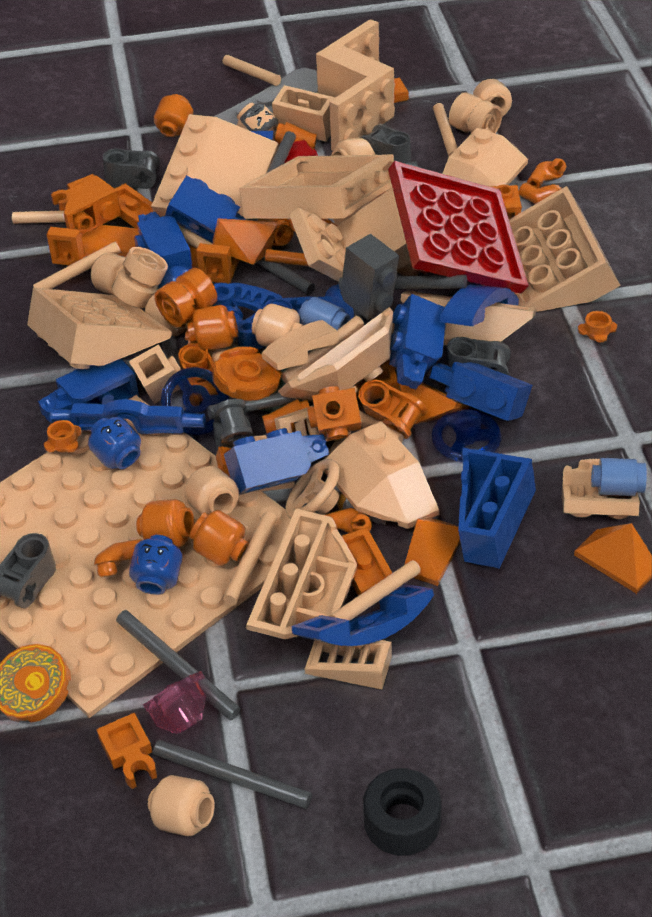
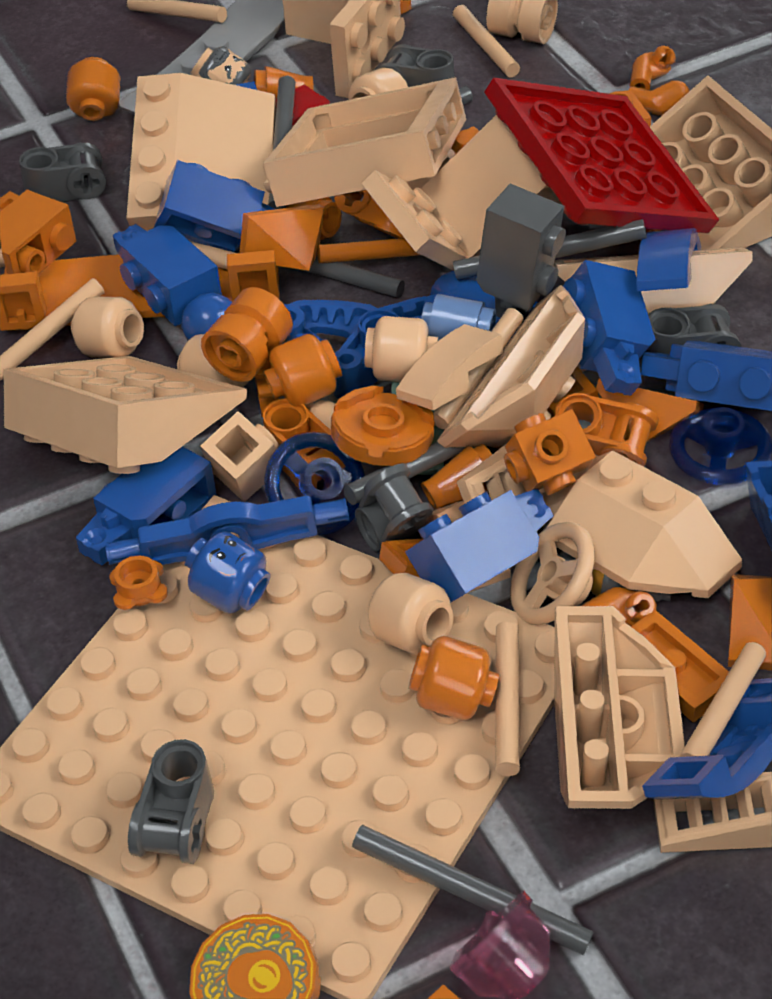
camera: 15 degrees left, 0 degrees up
(114, 553) = (304, 738): orange arm -> none
(132, 204) = (95, 226): orange plate -> none
(139, 276) = (156, 326): light nougat wheel -> none
(155, 564) = (376, 743): blue head -> none
(166, 518) = (362, 676): orange head -> none
(304, 110) = (287, 45): light nougat slope -> none
(486, 159) = (570, 60): light nougat wedge -> none

